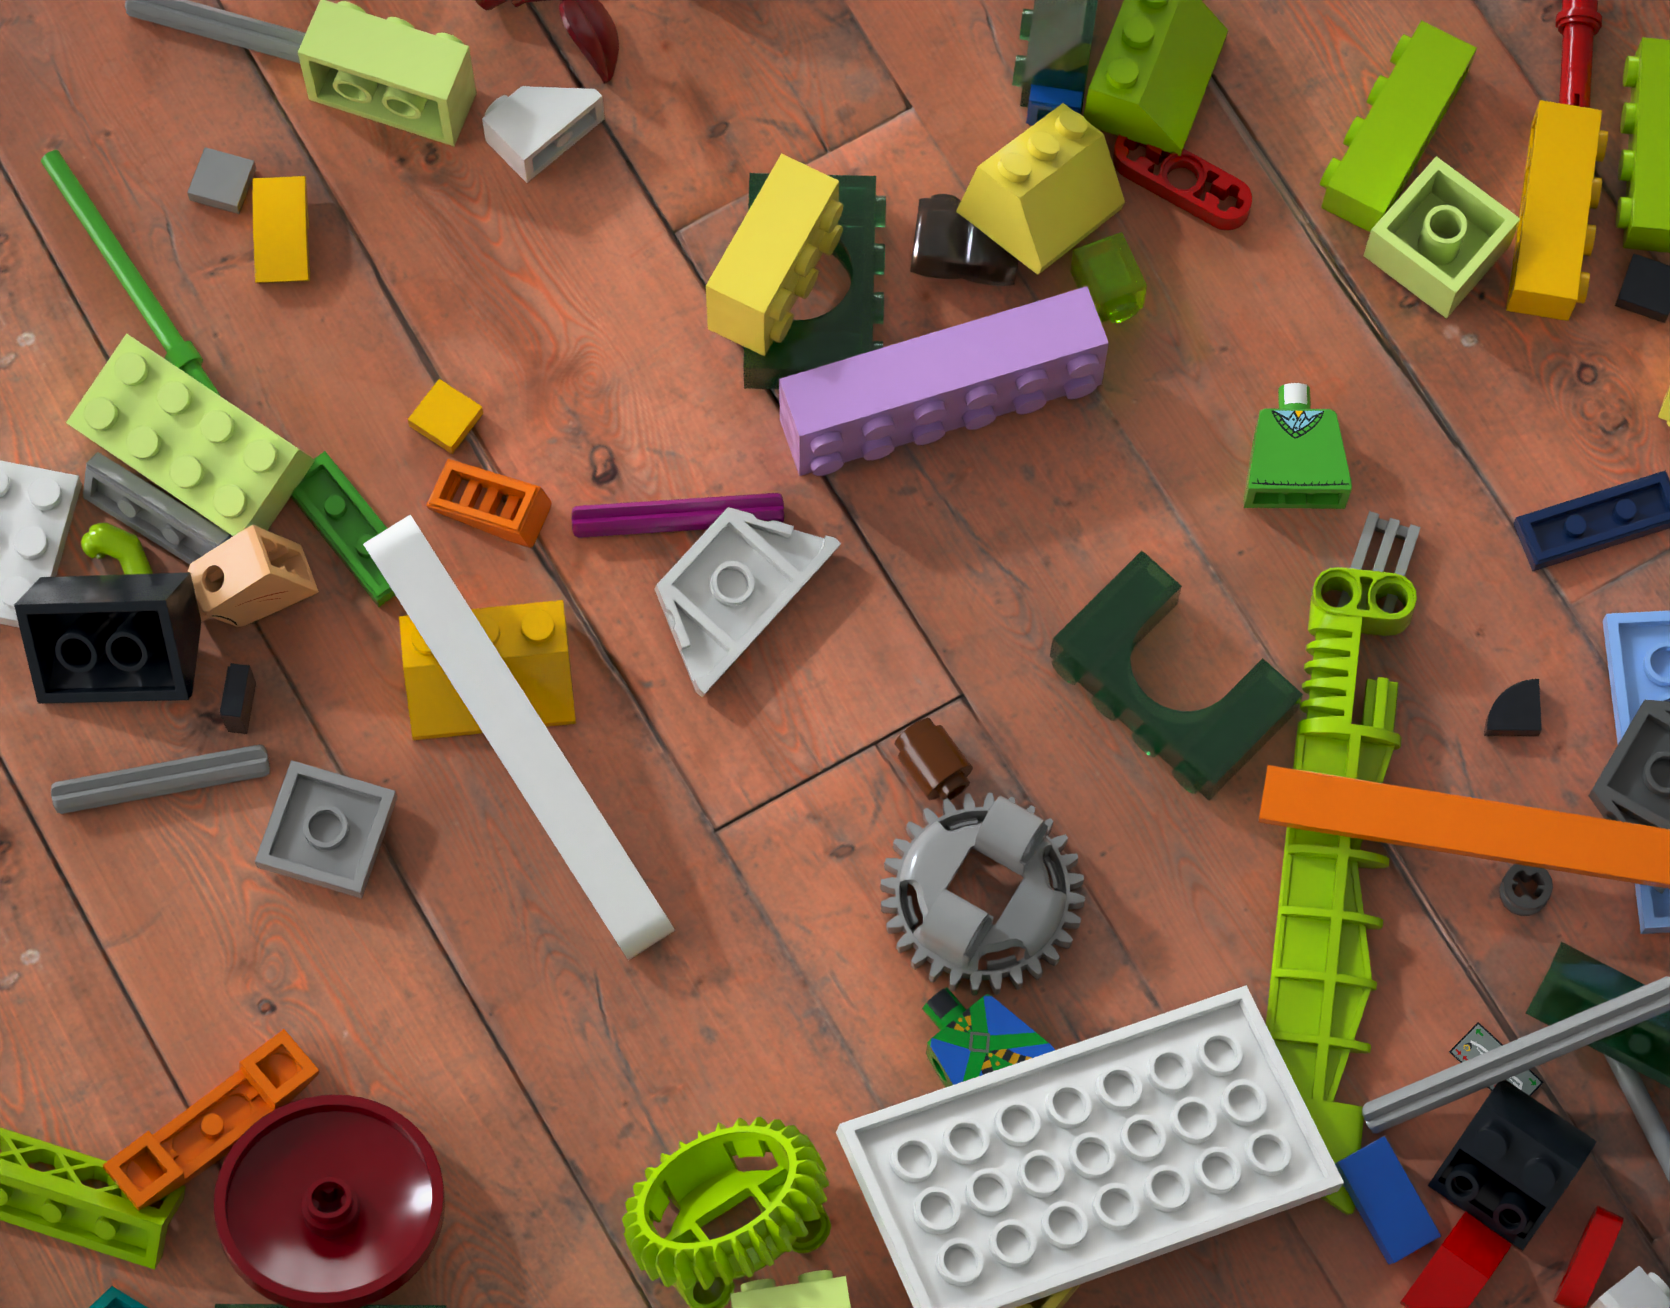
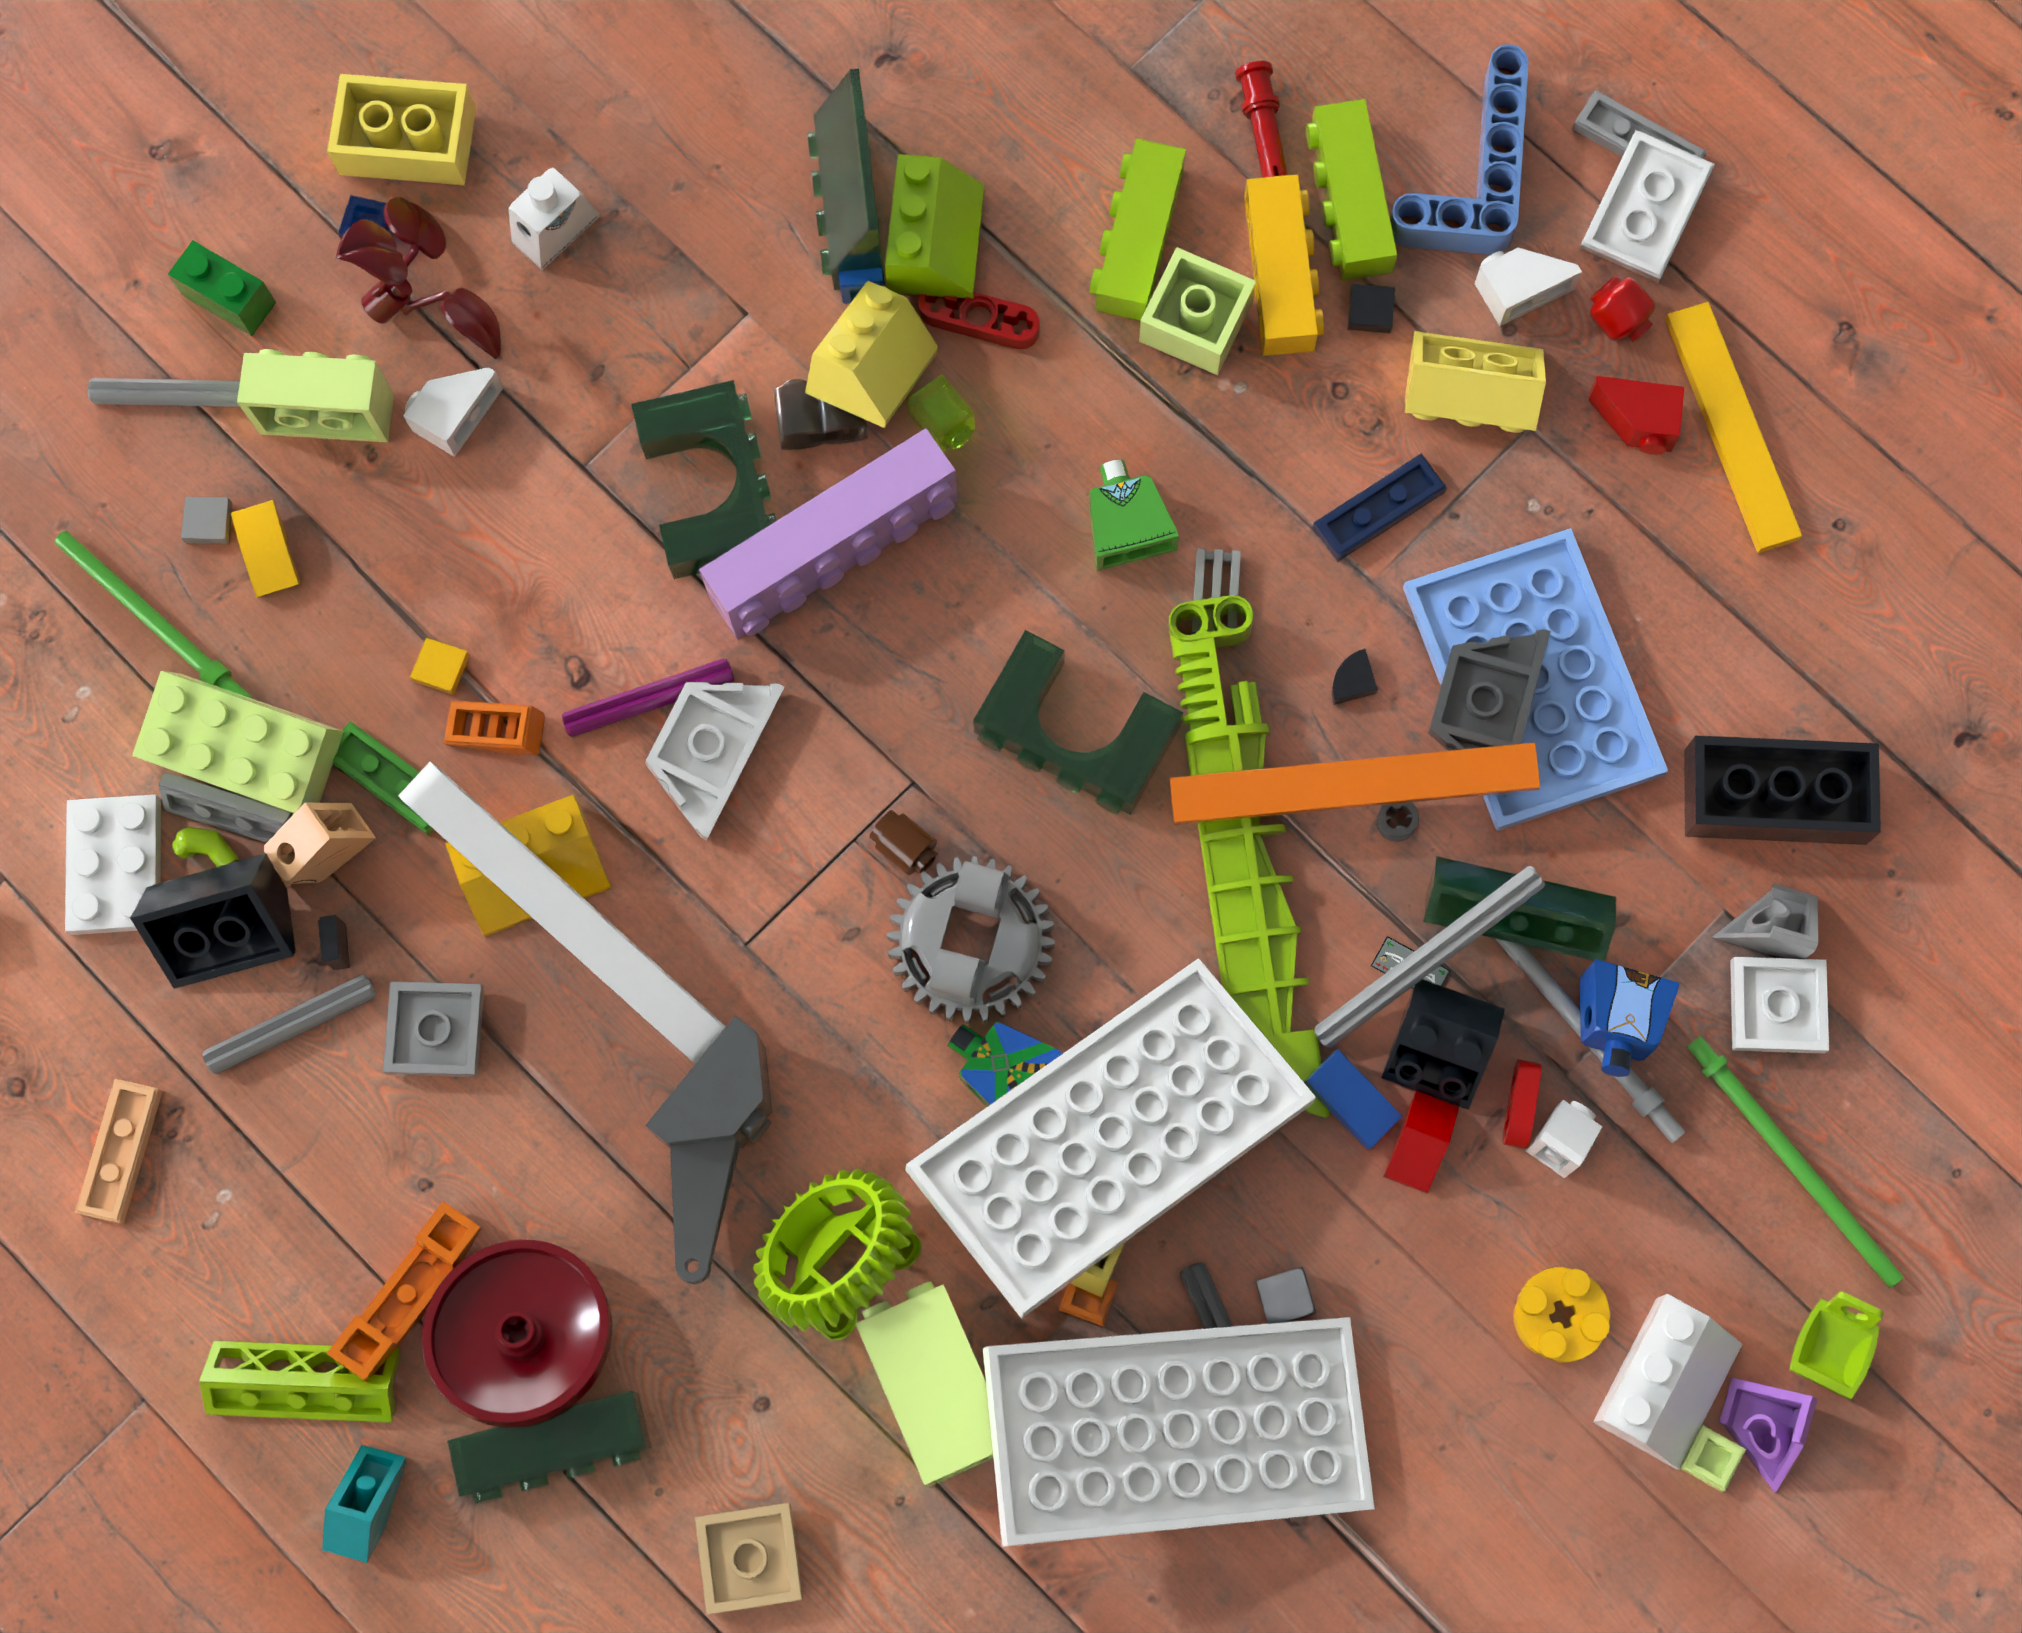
camera: 10 degrees left, 5 degrees up
(612, 1023) = (704, 1125): none -> dark grey slope
(774, 256) = (668, 469): light yellow brick -> none

